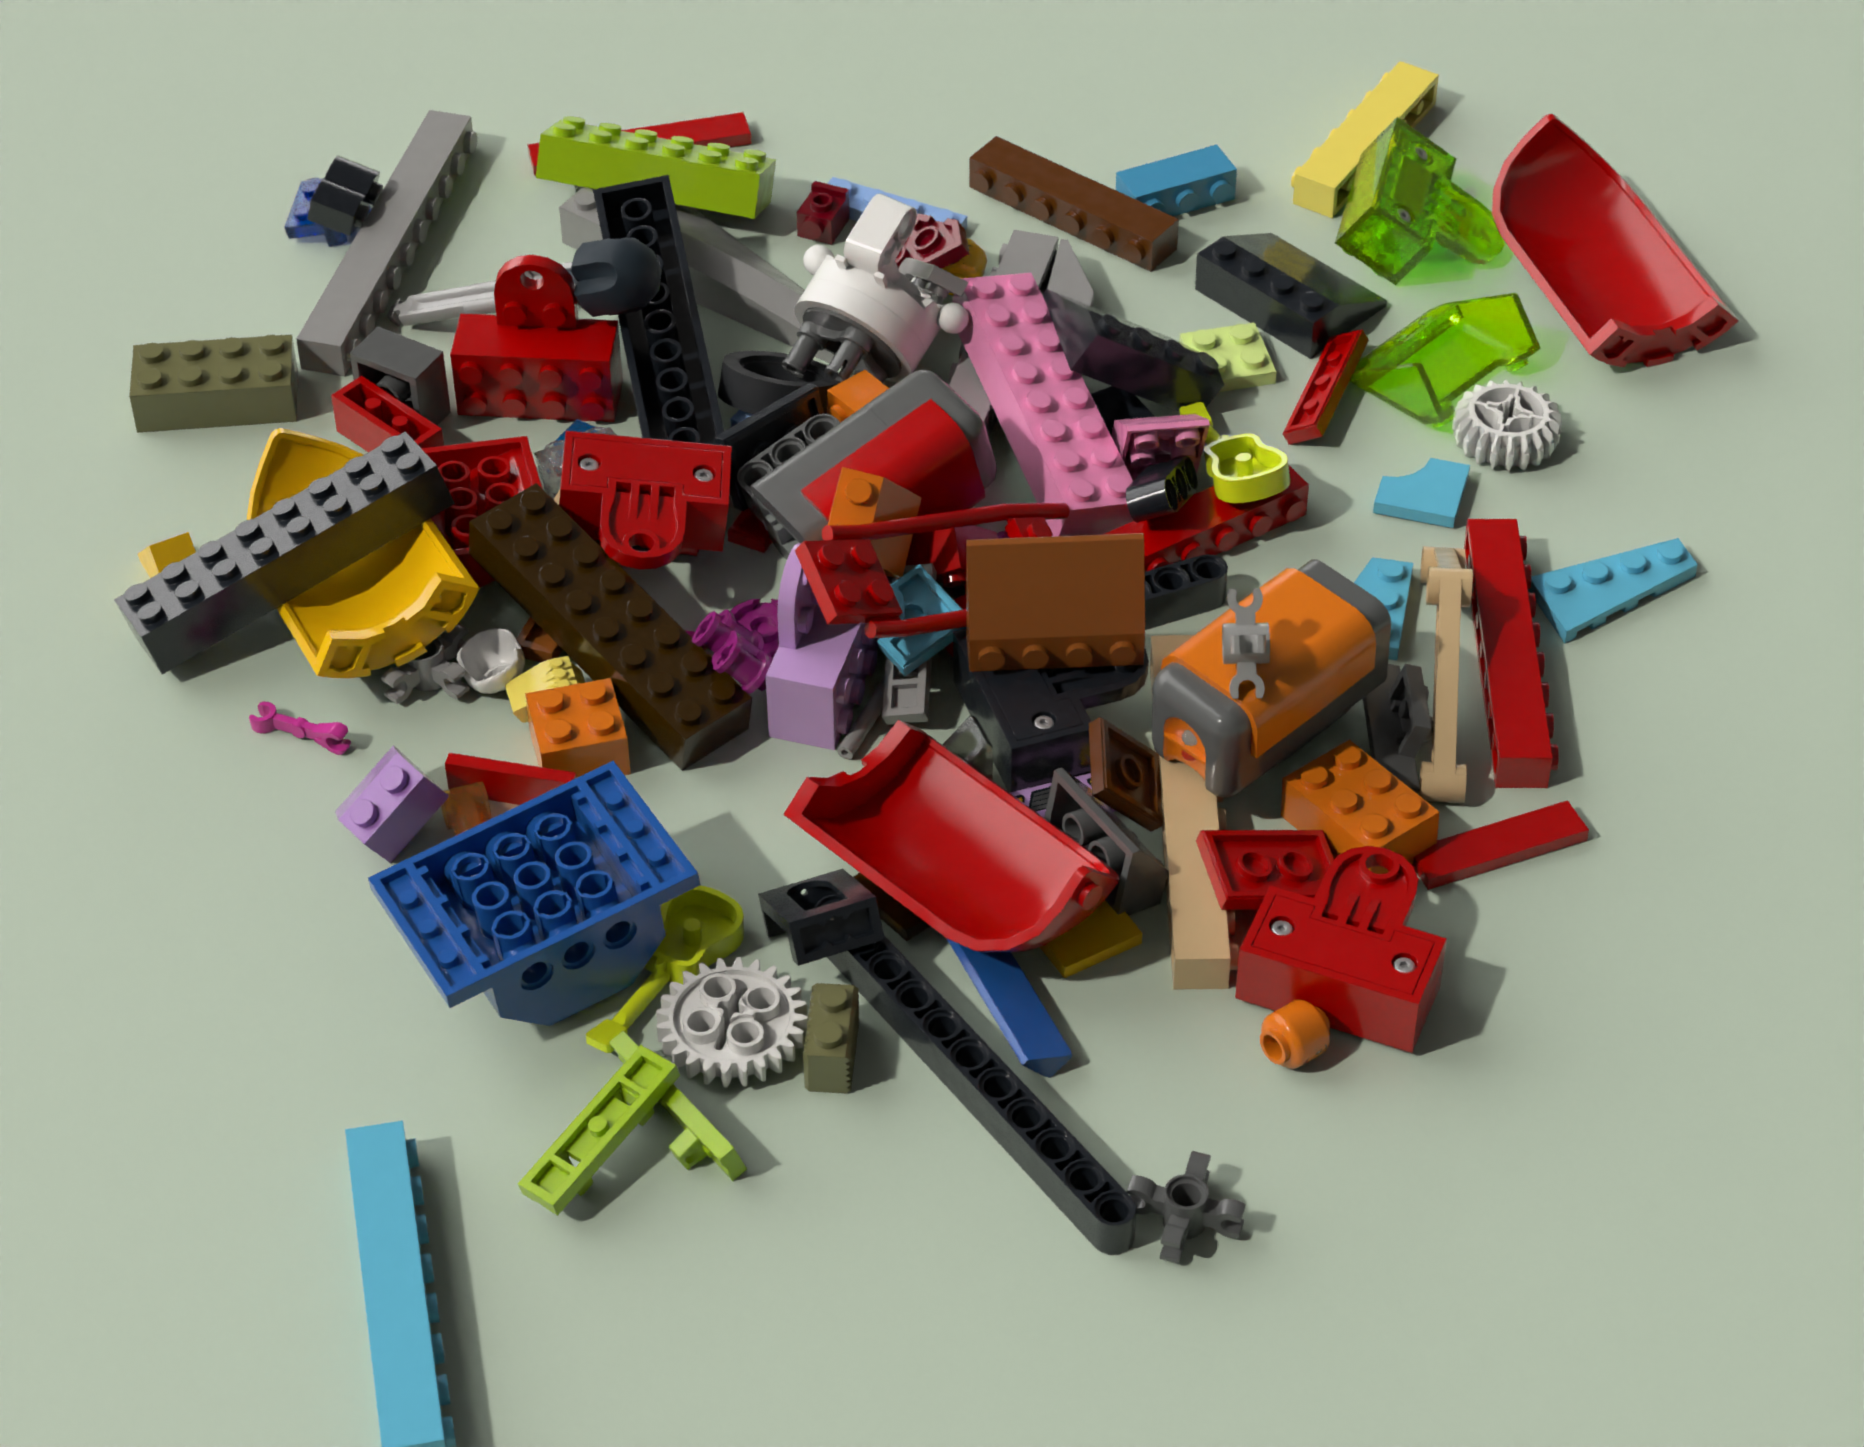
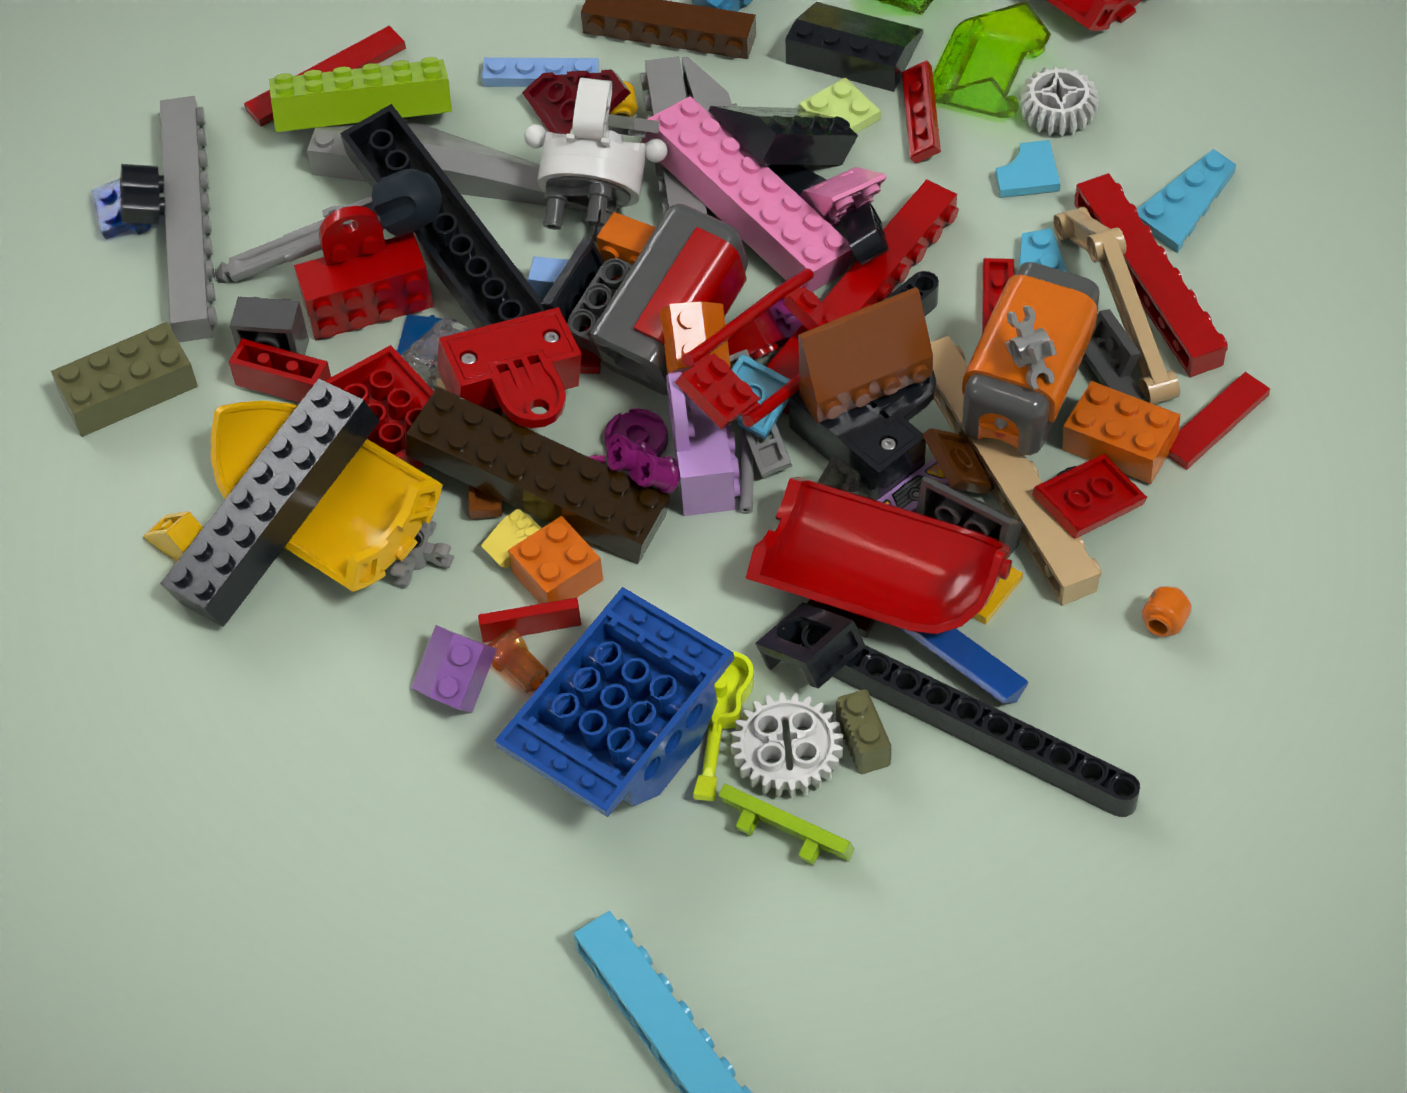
camera: 20 degrees left, 10 degrees up
(325, 734) = (374, 630): dark pink piece -> none
(491, 660) = (461, 529): white hair -> none
(599, 1130) = (749, 863): lime hinge -> none
(757, 380) = (540, 248): black tyre -> none
(823, 213) = (495, 89): dark red brick -> none
(1186, 1206) = (1164, 752): dark grey pin -> none
(1241, 463) = (910, 197): neon yellow piece -> none
(1347, 950) = (1174, 538): red brick -> none

